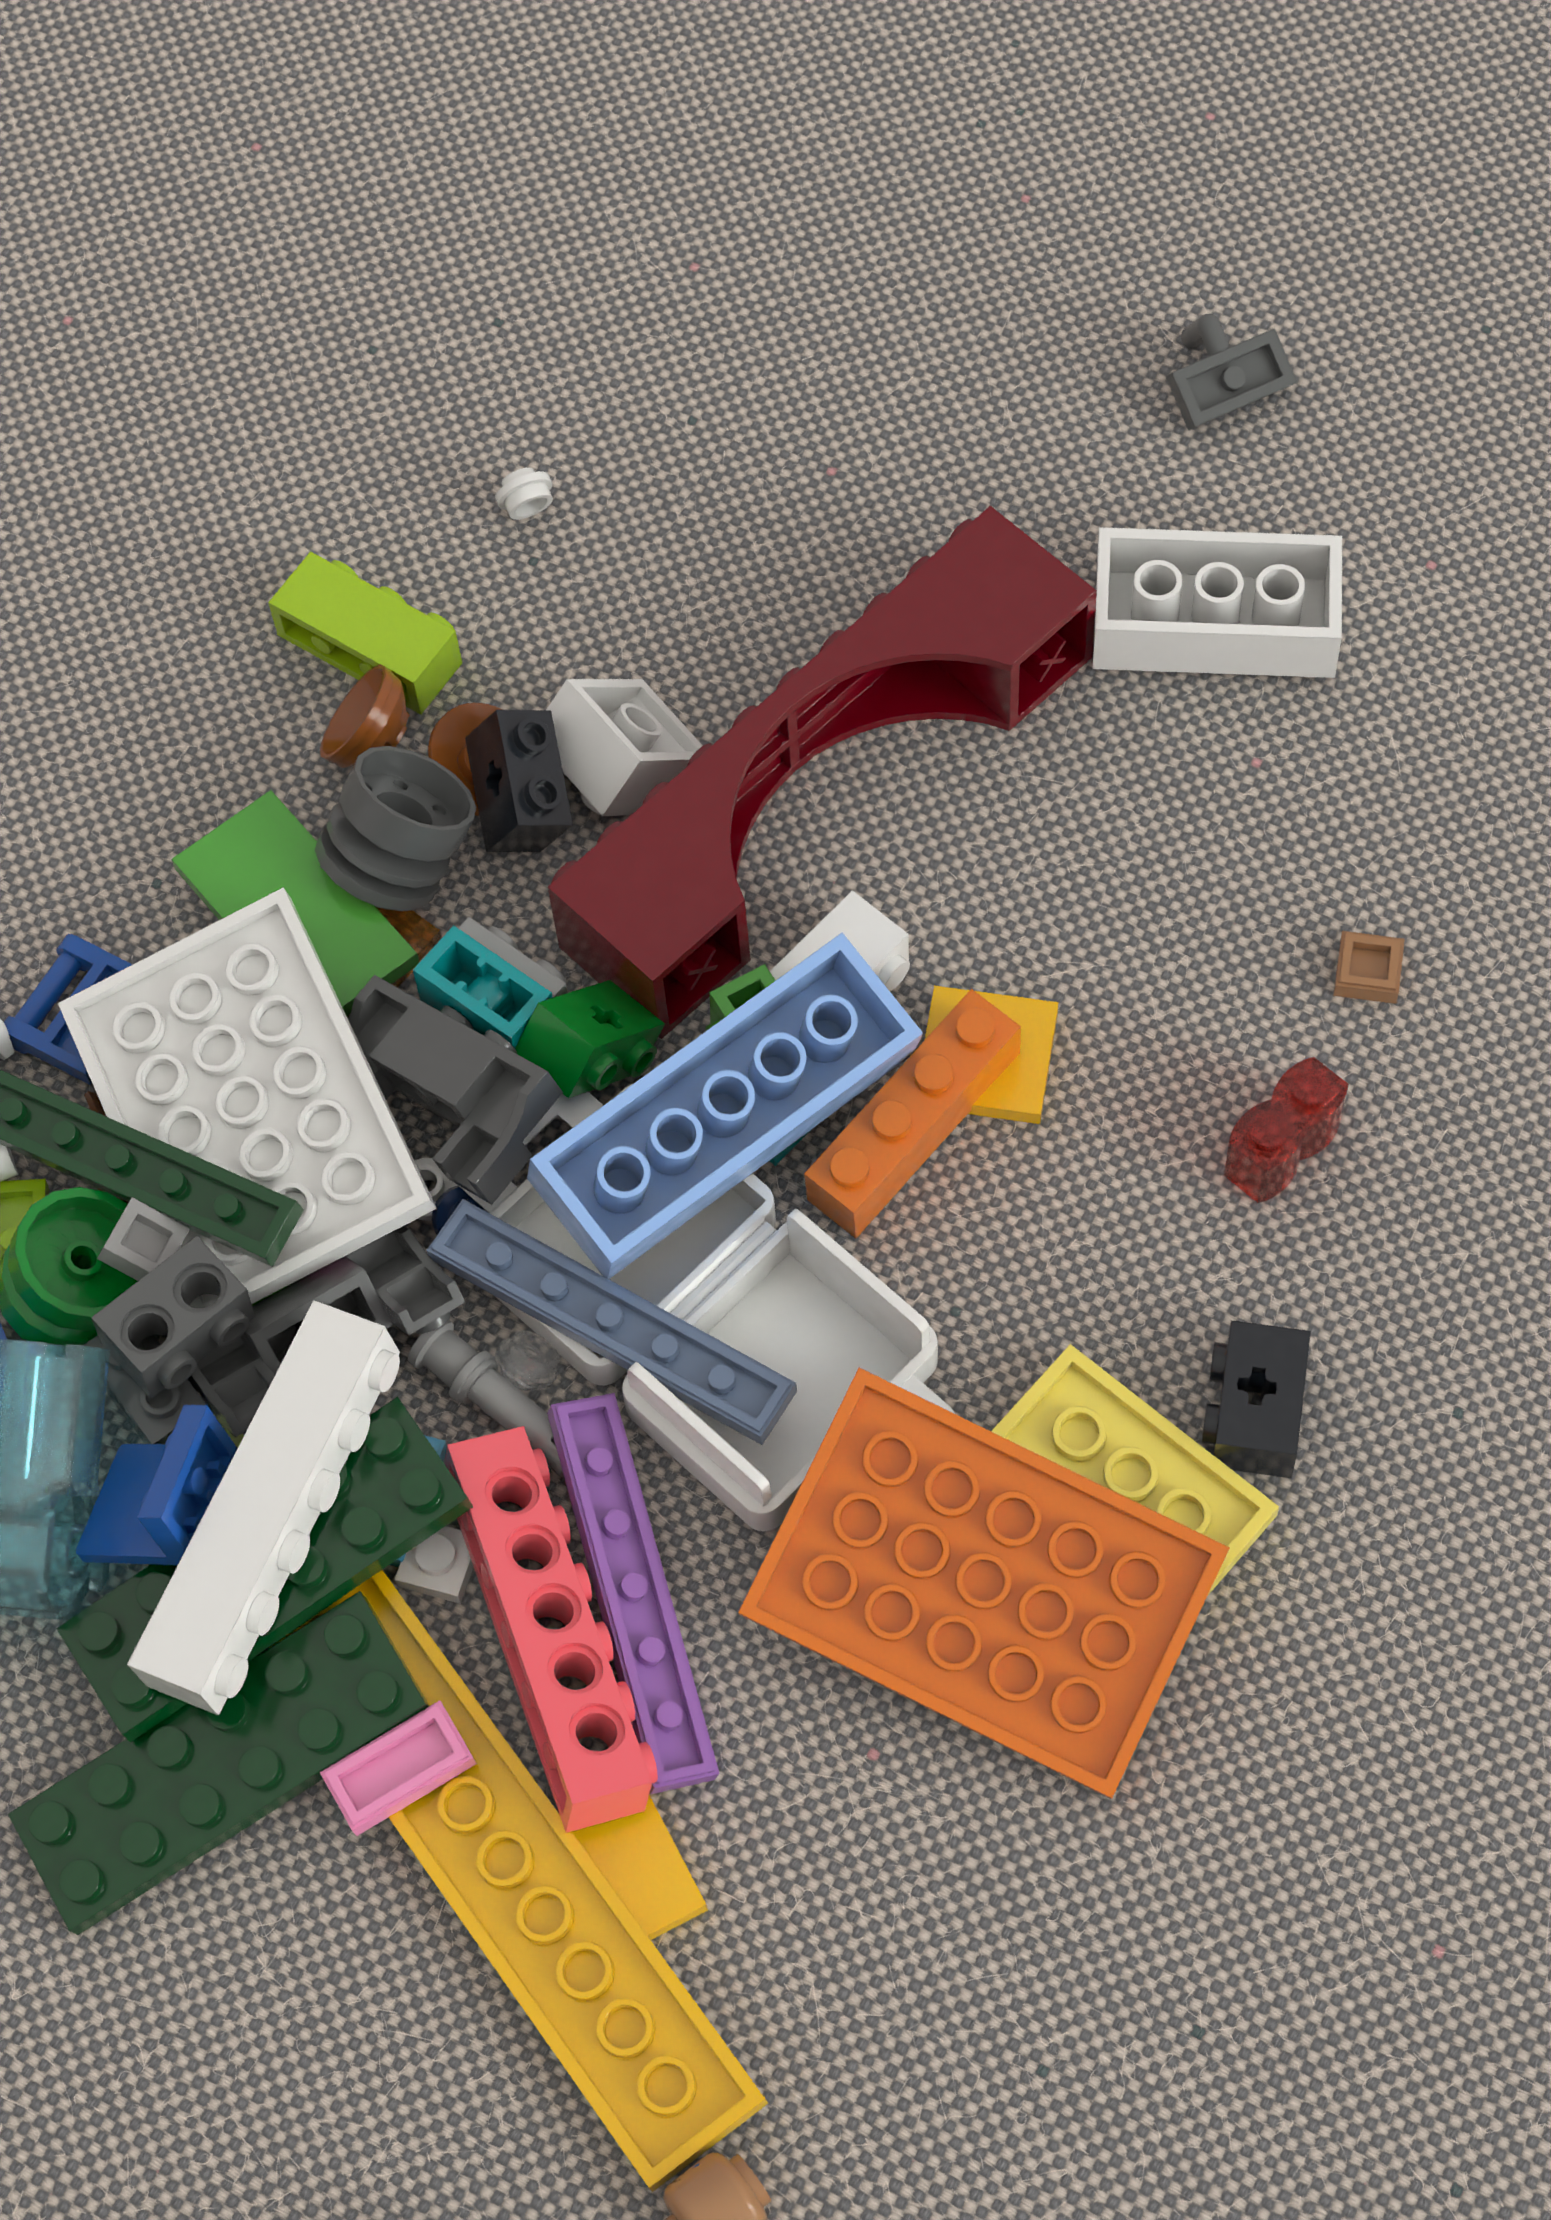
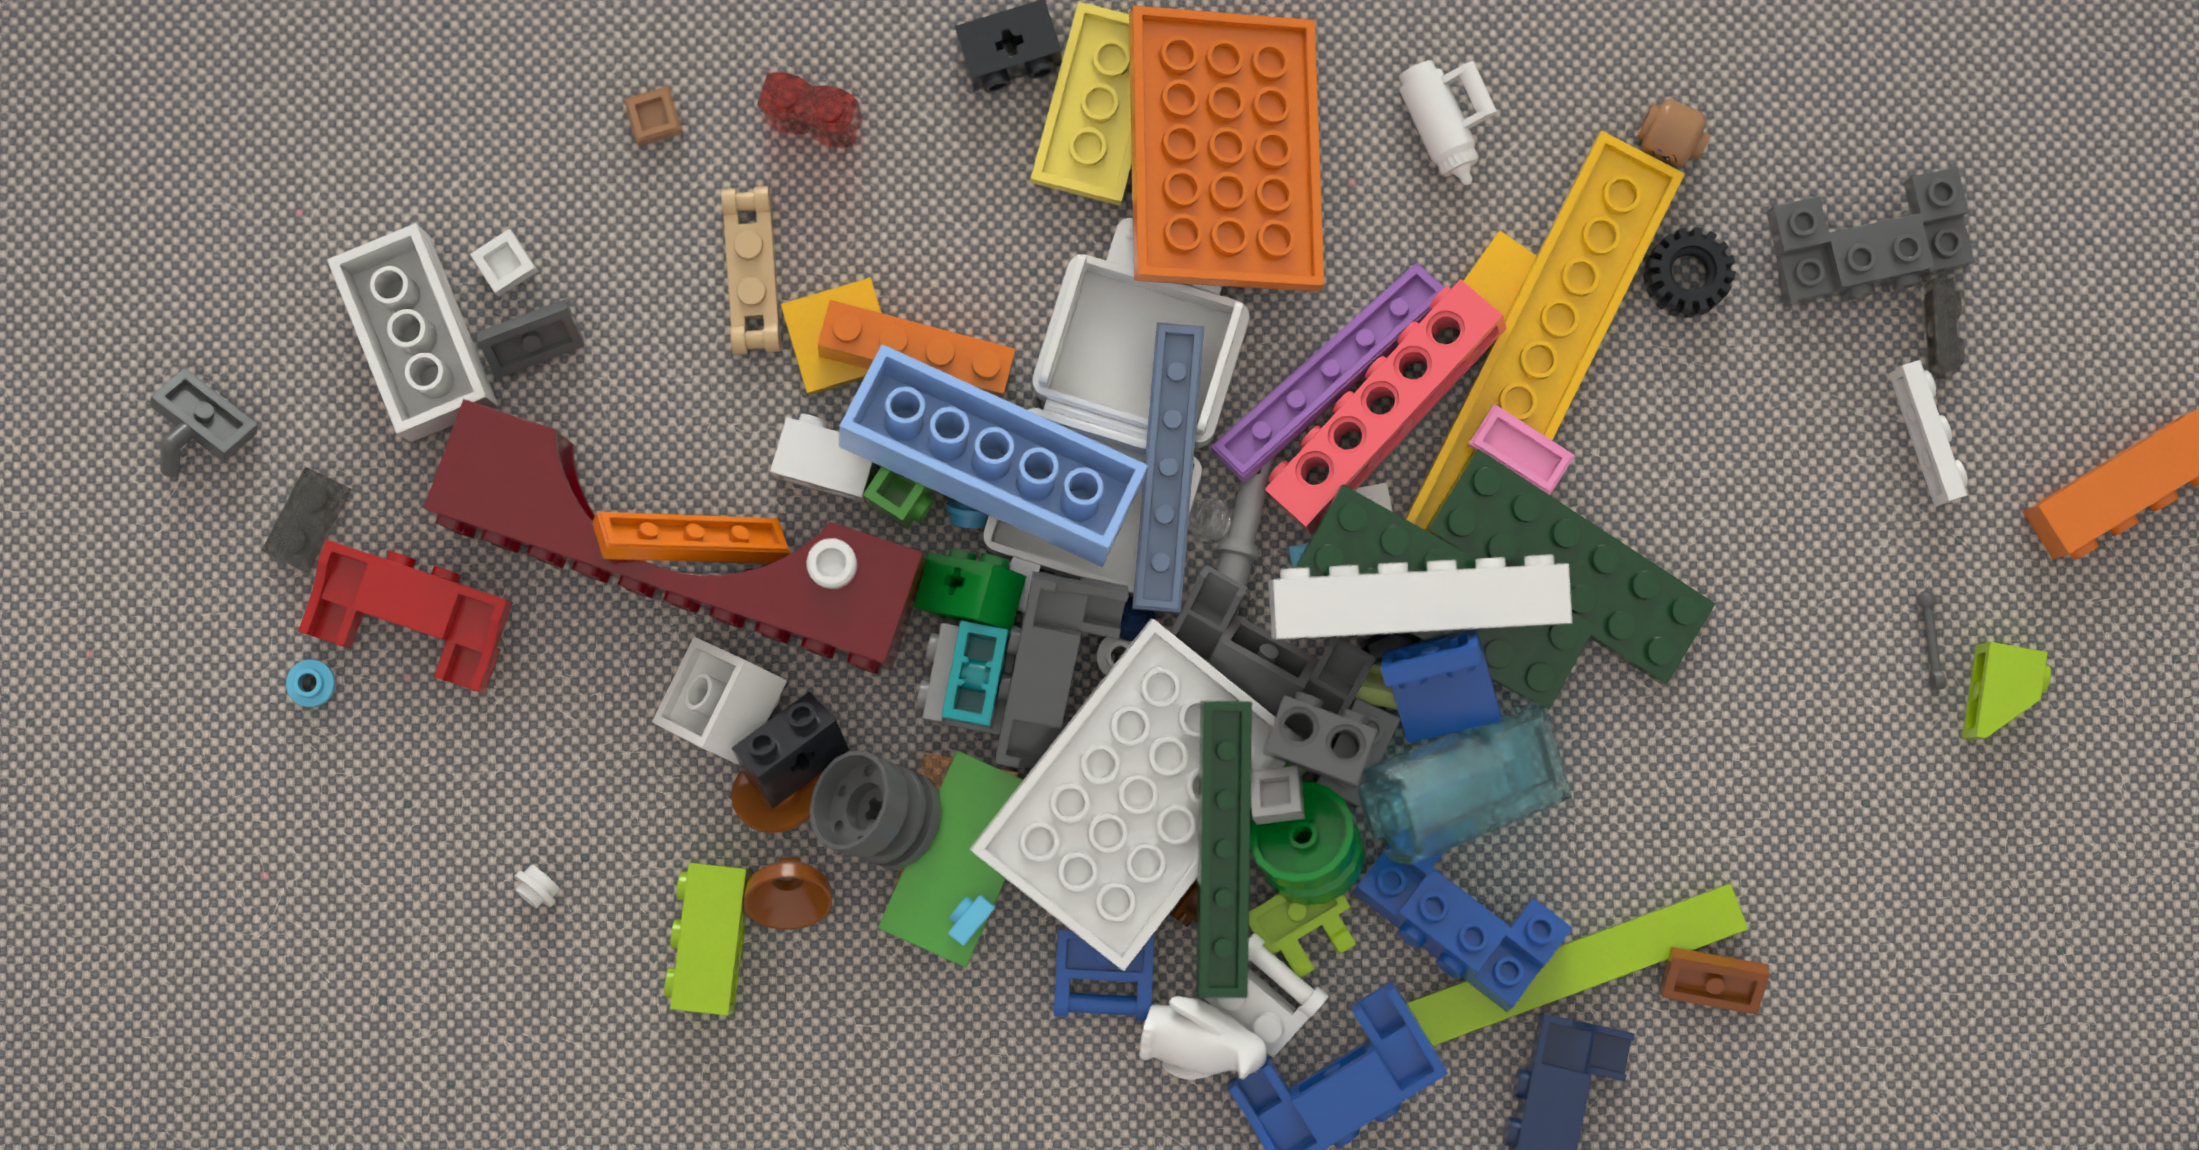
camera: 120 degrees left, 20 degrees up
(217, 871) = (969, 917): none -> medium azure plate
(478, 2102) = (1705, 249): none -> black tyre
(691, 876) = (832, 563): none -> white tile
(814, 769) = (689, 538): none -> orange tile
(874, 387) = (324, 687): none -> medium azure plate
(893, 1896) = (1439, 115): none -> white piece
(905, 490) = (392, 590): none -> red bracket
(1062, 438) = (306, 519): none -> clear smoke plate
(1119, 992) = (751, 270): none -> tan plate
(1152, 724) = (530, 339): none -> dark grey plate
(1260, 734) = (504, 262): none -> white plate

